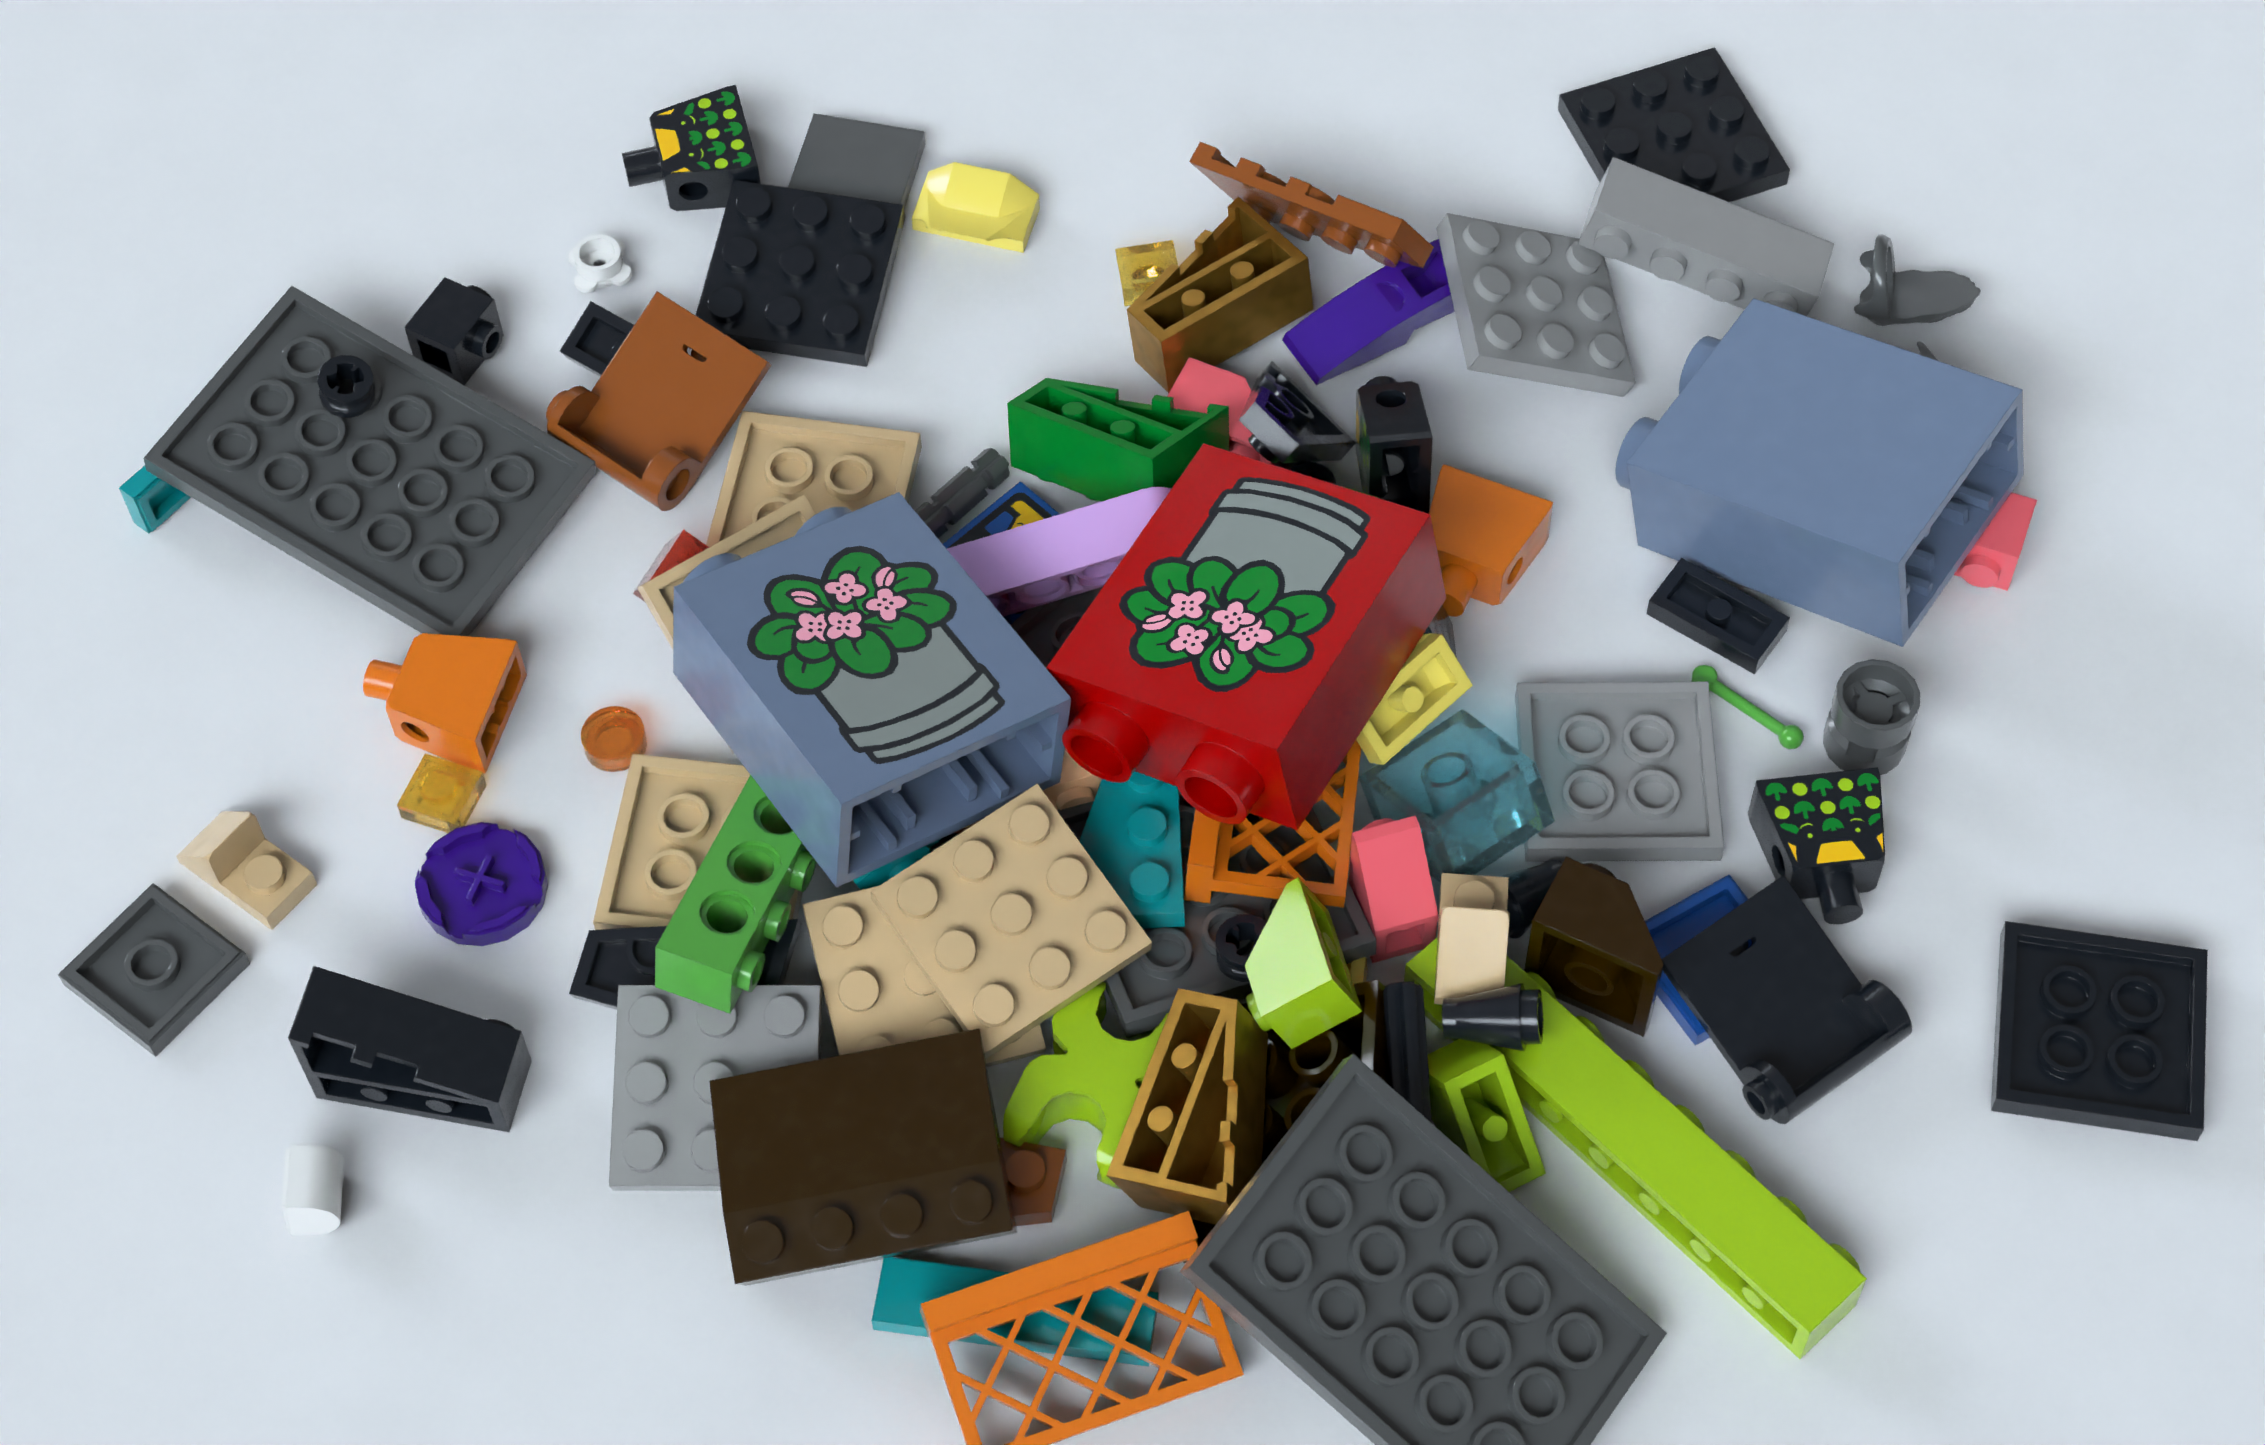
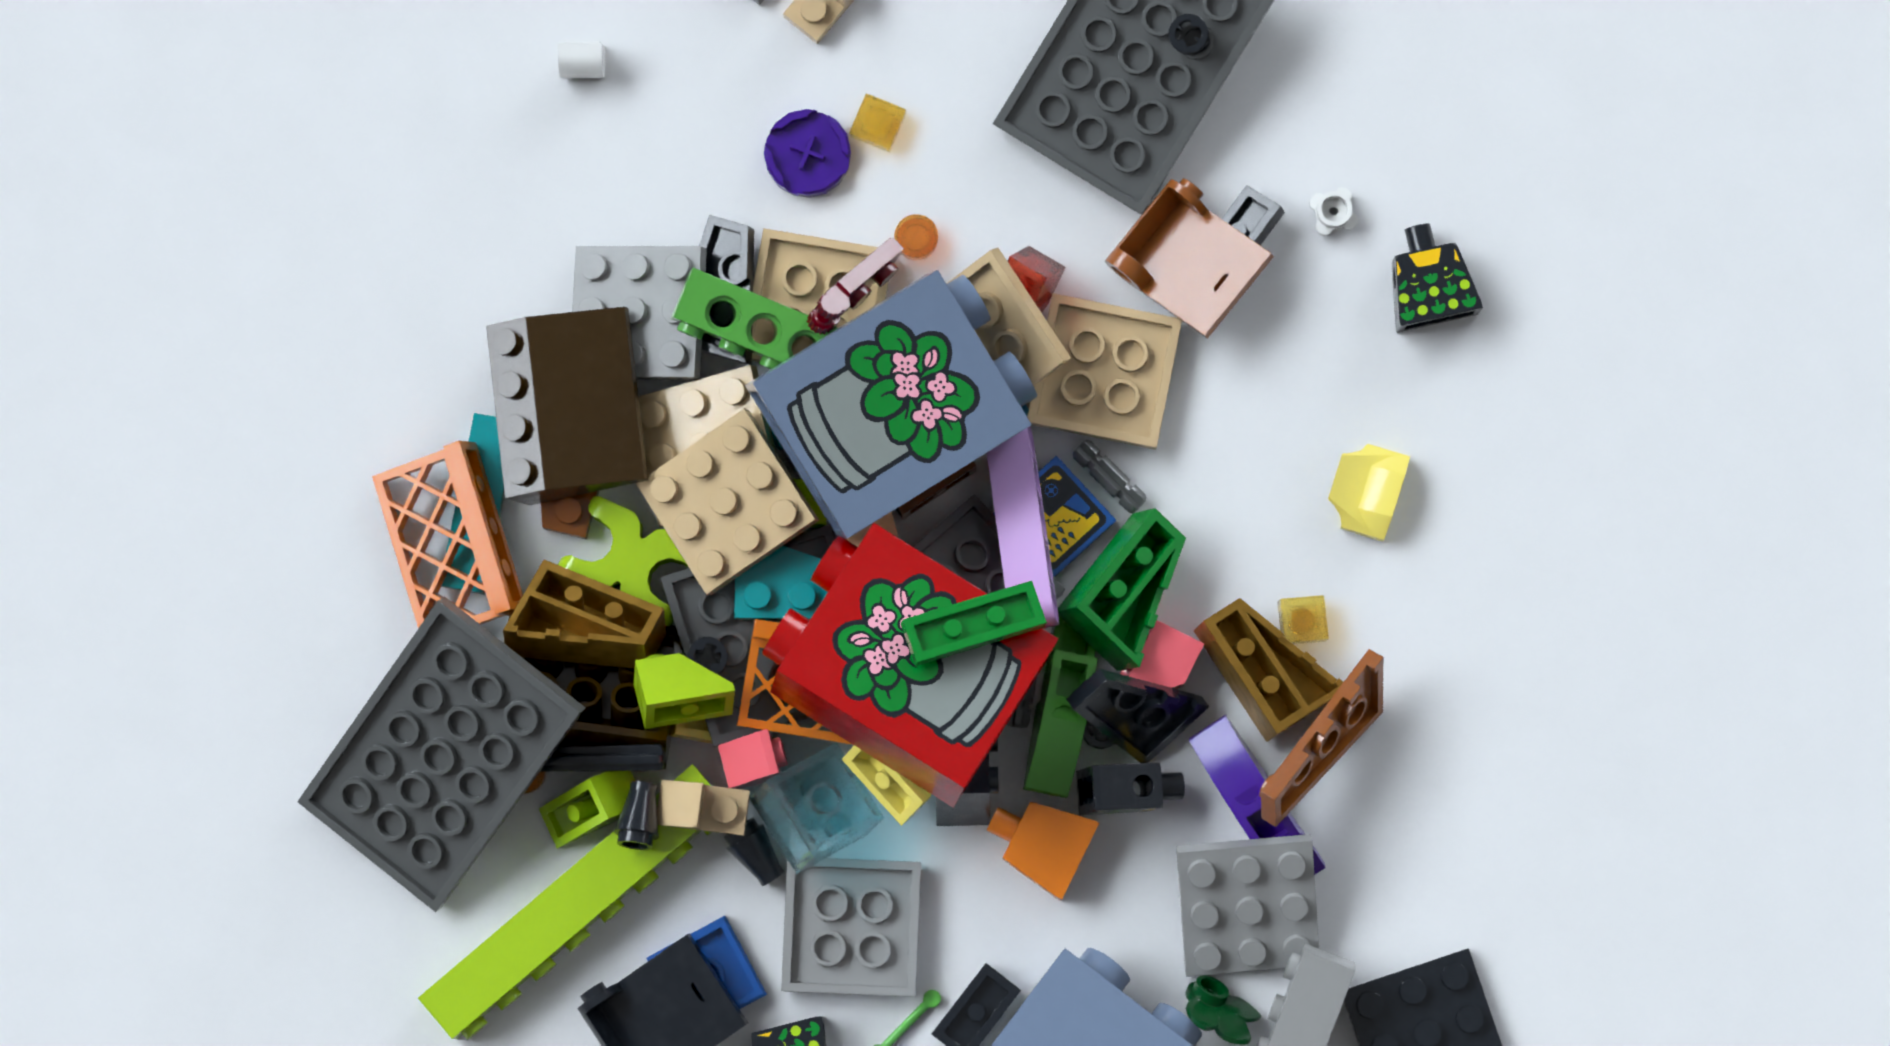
camera: 95 degrees right, 25 degrees up
(407, 1053) = (668, 116): black wedge -> none
(451, 694) = (948, 123): orange torso -> none
(455, 329) = (1268, 110): black brick -> none
(690, 759) = (855, 287): none -> hinge
(801, 271) = (1315, 359): black plate -> none
(858, 159) = (1417, 401): dark grey tile -> none
(1192, 522) = (973, 623): none -> green plate
(1596, 946) = (700, 890): dark brown slope -> none
(1666, 345) = (1214, 1009): none -> dark green plate

